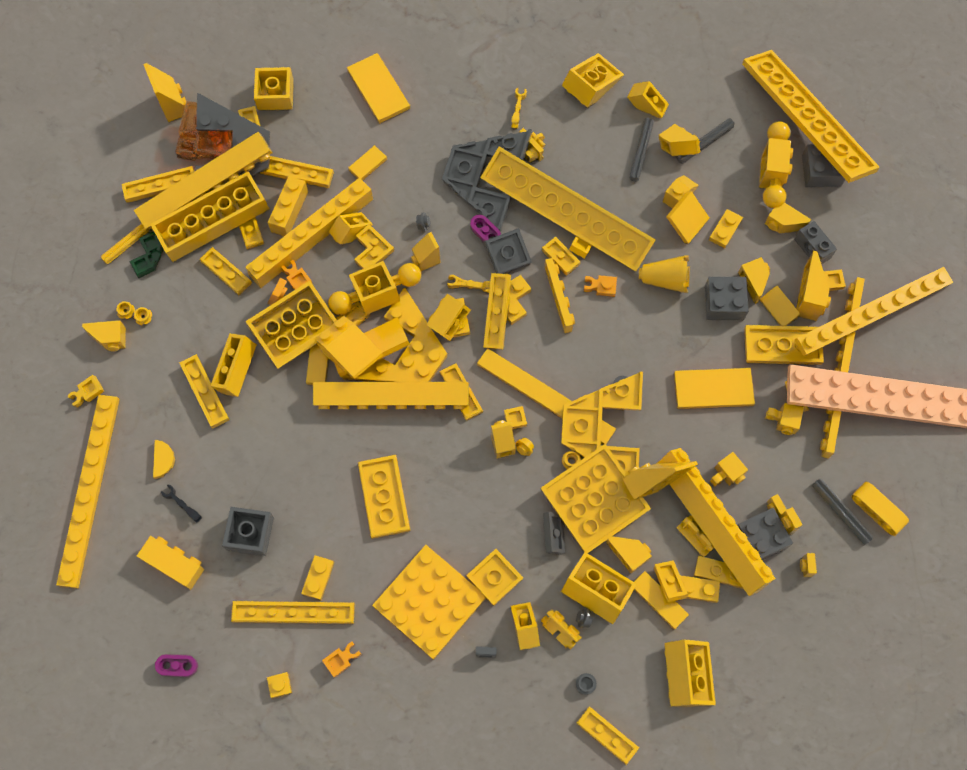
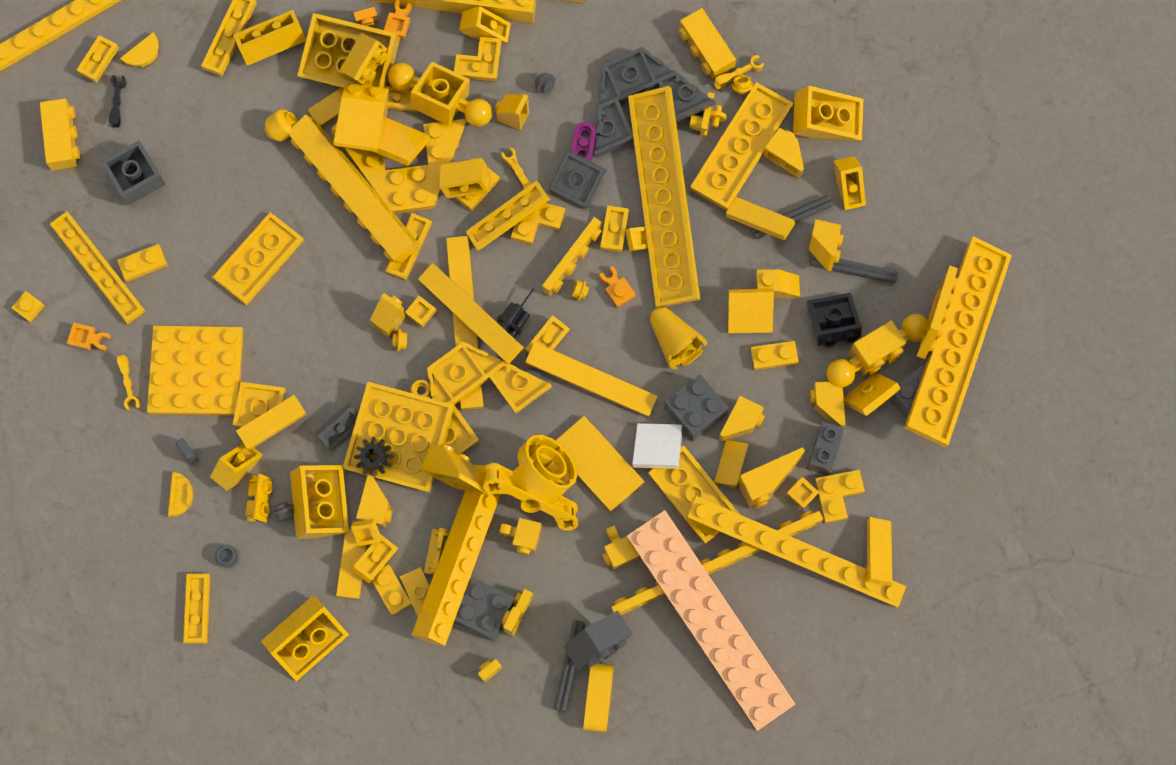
camera: 50 degrees right, 5 degrees up
(139, 492) = (97, 58): none -> yellow plate
(303, 406) = (279, 125): none -> yellow head
(310, 312) = (364, 59): none -> yellow slope
(384, 649) = (123, 364): none -> yellow piece
(483, 109) = (706, 44): none -> yellow brick
(513, 682) = (180, 495): none -> yellow tile
(515, 576) = (271, 422): none -> yellow tile
(528, 110) = (742, 84): none -> yellow plate
(546, 385) = (470, 313): none -> yellow tile
(570, 142) = (741, 146): none -> yellow plate
(571, 368) = (514, 317): none -> black piece
(584, 308) = (579, 290): none -> yellow plate
(596, 517) = (367, 463): none -> black gear
(597, 119) = (785, 152): none -> yellow slope
(603, 353) = (550, 334): none -> yellow plate
(629, 166) = (760, 218): none -> yellow tile
(649, 571) = (366, 532): none -> yellow plate
(653, 347) = (591, 379): none -> yellow tile
(704, 427) = (539, 480): none -> yellow piece
(733, 175) = (834, 320): none -> black plate
(734, 340) = (657, 446): none -> white tile
(783, 108) = (938, 312): none -> yellow plate
(802, 189) = (871, 394): none -> yellow plate
(845, 260) = (833, 489): none -> yellow plate
(847, 476) = (598, 641): none -> dark grey brick
(910, 263) = (879, 551): none -> yellow tile

